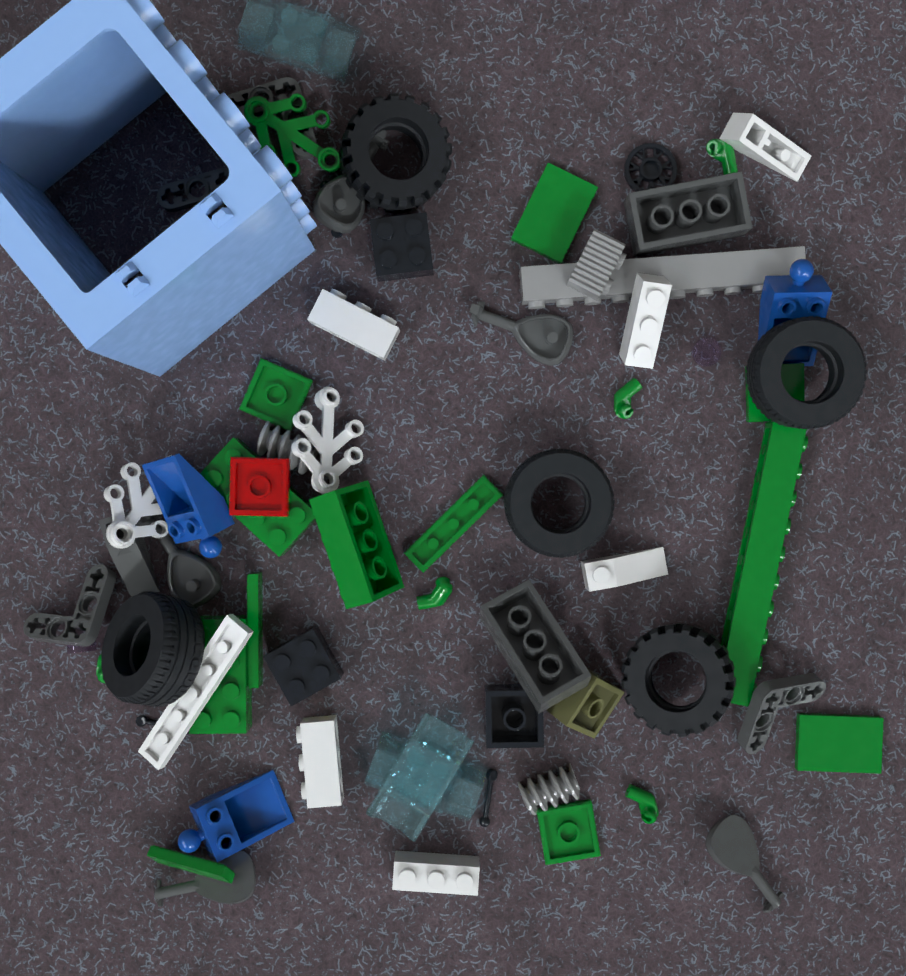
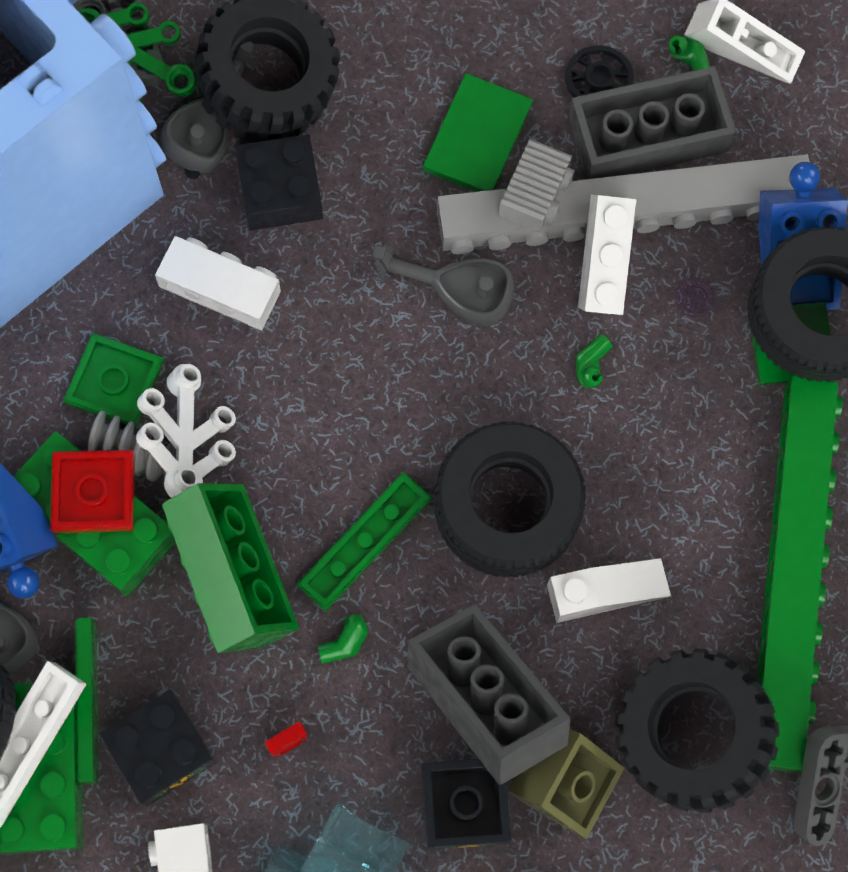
camera: 10 degrees left, 15 degrees down
(392, 664) = (286, 740): none -> red tile

